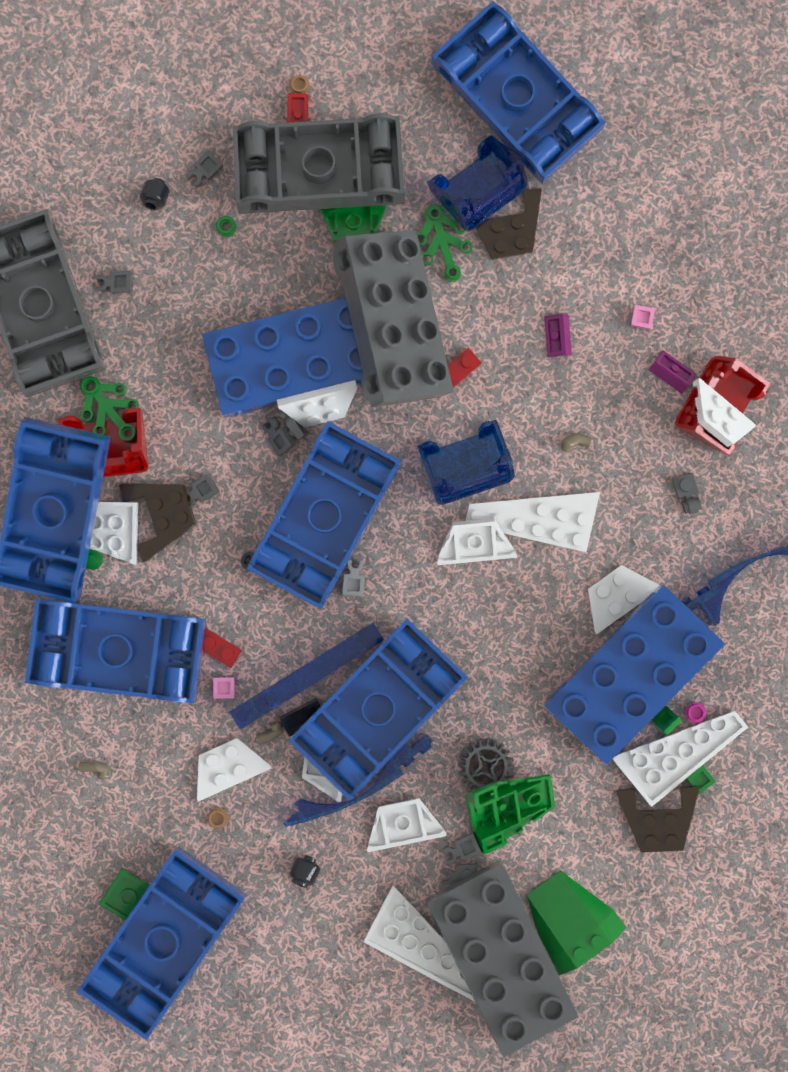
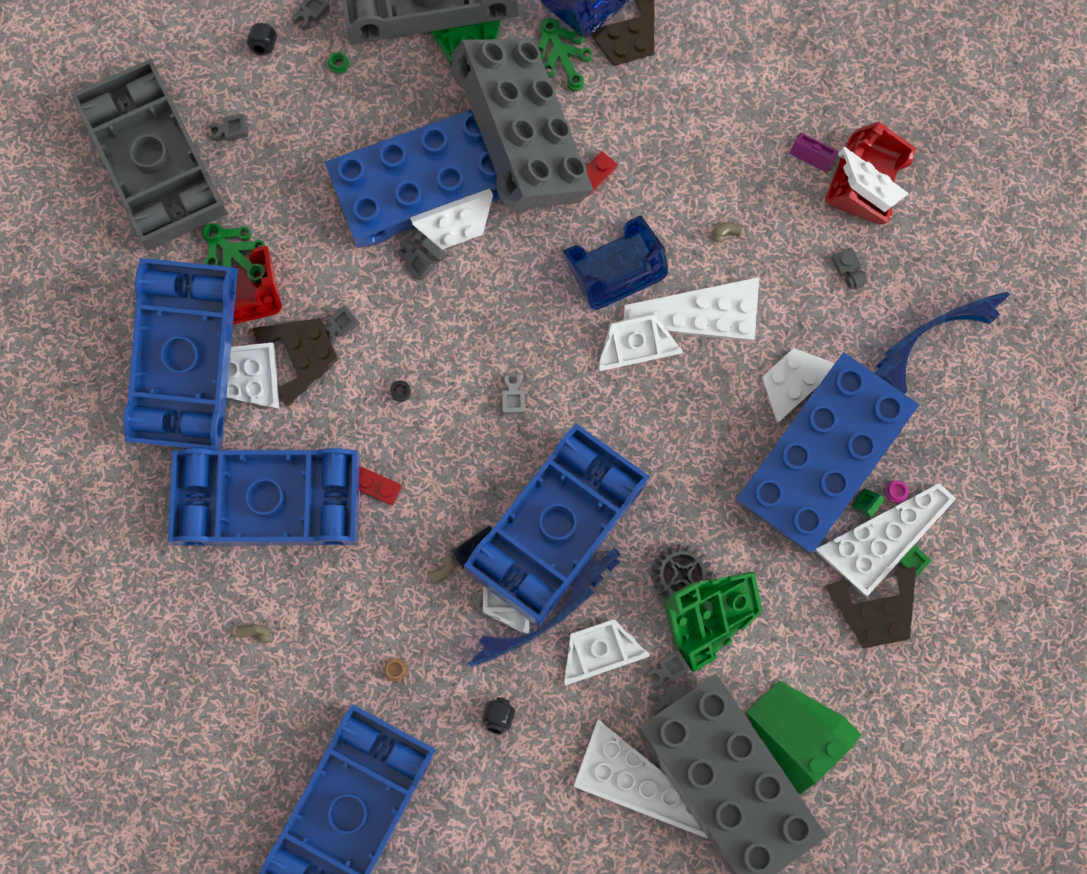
camera: 10 degrees left, 10 degrees down
(95, 560) = (233, 408): green plate -> none
(124, 894) = (298, 766): green plate -> none
(223, 687) = (387, 526): bright pink plate -> none
(226, 767) = (399, 613): white wing -> none
(306, 676) = (454, 513): clear blue slope -> none
(324, 515) = (473, 331): blue piece -> none
(558, 335) = (691, 130): magenta slope -> none
(642, 317) = (775, 101): bright pink plate -> none

